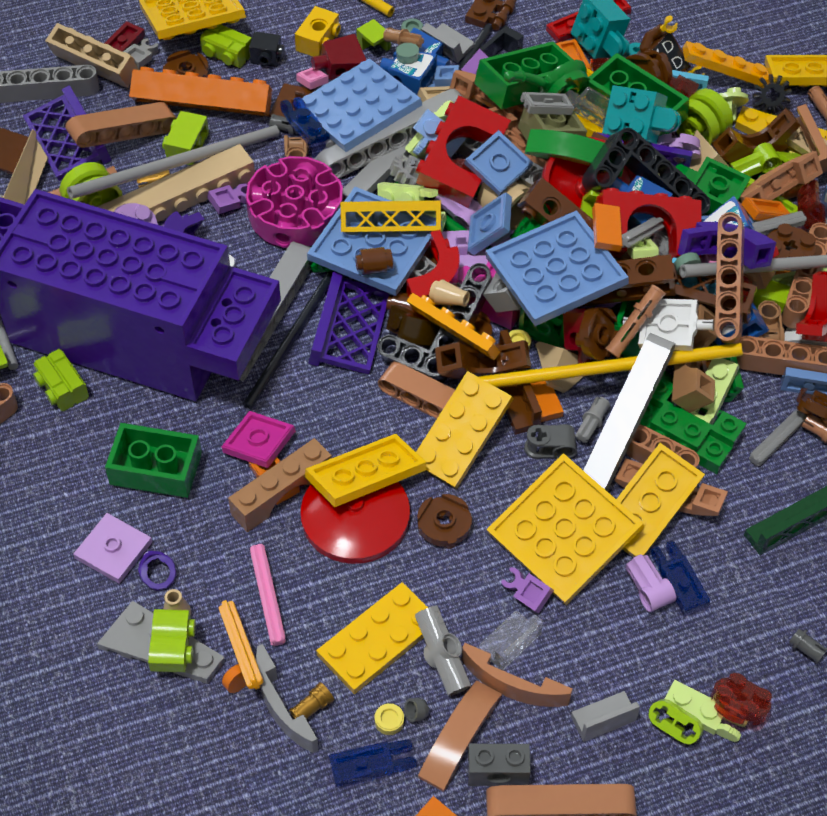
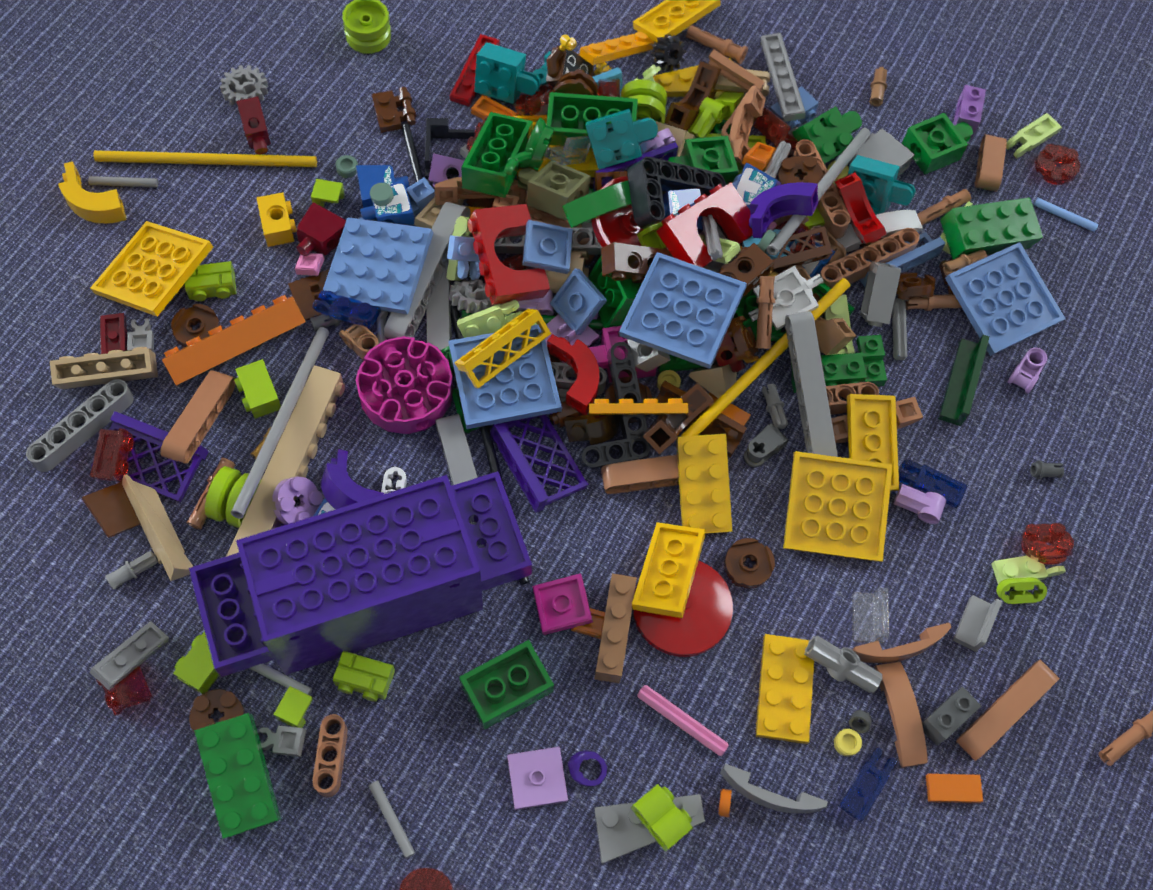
camera: 45 degrees left, 10 degrees up
(40, 113) = (112, 455): none -> clear red bracket
(175, 601) = (629, 793): tan cone -> none
(226, 198) = (343, 420): medium lavender plate -> none
(241, 645) = (708, 776): light orange axle -> none
(266, 49) = (248, 263): black brick -> none
(318, 698) = (791, 769): pearl gold pin -> none
(374, 260) = (529, 395): reddish brown brick -> none
(402, 36) = (360, 181): medium nougat axle -> none
(448, 294) = (614, 384): tan cone -> none
(454, 44) = (397, 157): light grey panel -> none
(529, 590) = (854, 571): medium lavender plate -> none
(547, 103) = (547, 173): light grey tile -> none
(607, 227) = (696, 252): orange tile -> none
(725, 266) = (799, 228): nougat beam -> none
(774, 386) = (880, 293): none -> light grey window

